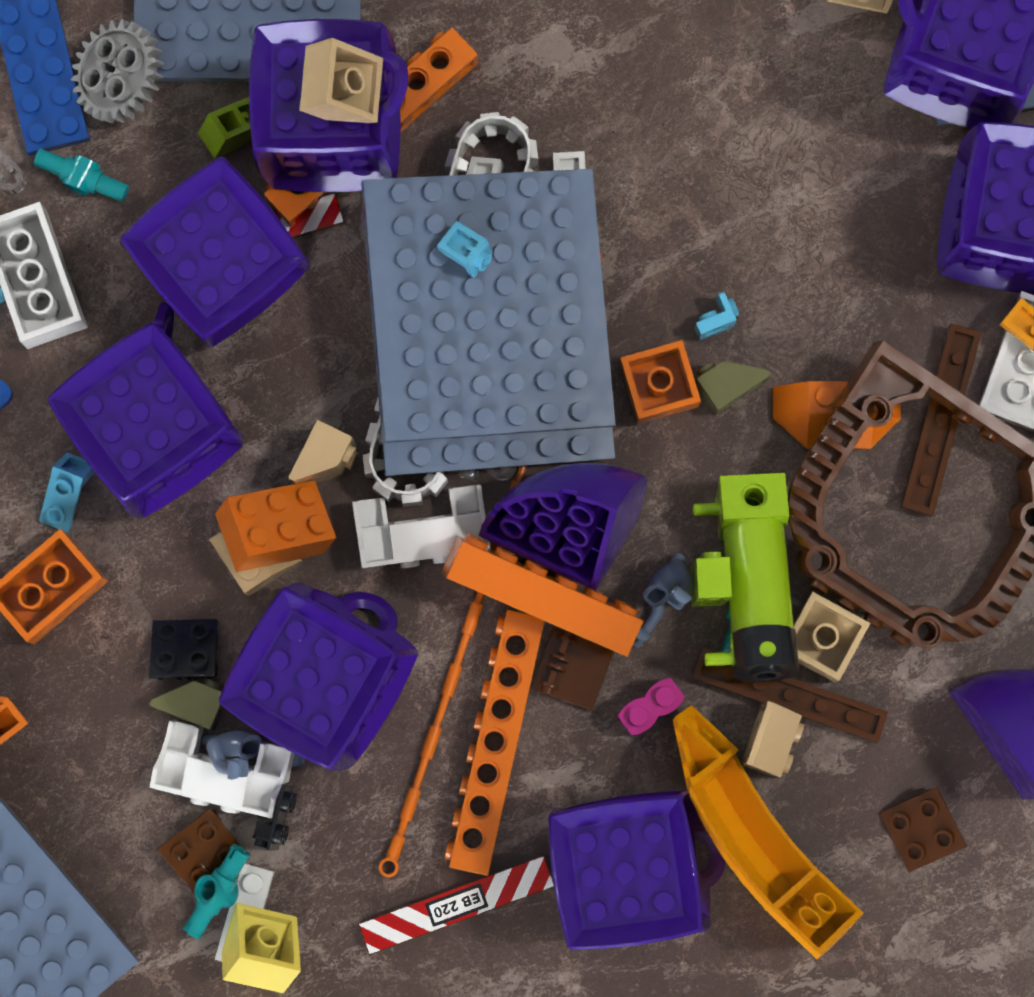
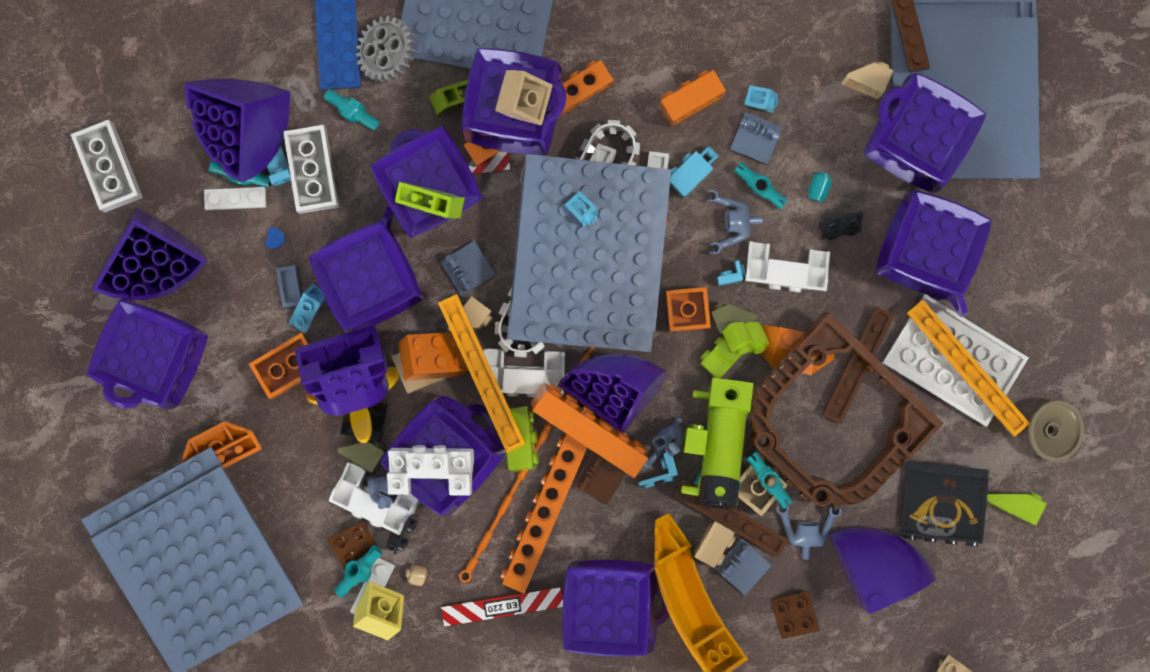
camera: 10 degrees right, 5 degrees up
(29, 462) = (289, 285): none -> sand blue tile
(143, 580) = (347, 376): none -> dark purple brick
(222, 273) = (430, 200): none -> lime slope
(296, 686) = (430, 463): none -> white bracket
(304, 383) = (467, 268): none -> sand blue hinge
(310, 880) = (416, 575): none -> tan piece
(355, 536) = (481, 372): none -> light orange plate
(436, 632) = (524, 456): none -> lime brick
(603, 58) = (691, 97): none -> orange brick
(625, 172) = (692, 172): none -> medium azure brick
(644, 711) = (648, 507): dark pink brick -> none
(675, 628) = (667, 463): none -> medium azure bracket
(706, 234) = (735, 221): none -> sand blue piece
(710, 43) = (761, 99): none -> medium azure bracket
(713, 105) = (756, 138): none -> sand blue hinge
(720, 164) = (751, 179): none -> teal pin
(727, 445) = (719, 359): none -> lime brick
(758, 407) = (746, 337): none -> lime brick
(801, 299) = (785, 273): none -> white bracket
(825, 159) = (819, 186): none -> teal brick
(825, 769) = (743, 566): none -> sand blue hinge
(854, 632) = (762, 471): none -> teal pin
(871, 209) = (841, 225): none -> black hinge
(915, 695) = (807, 532): none -> sand blue piece

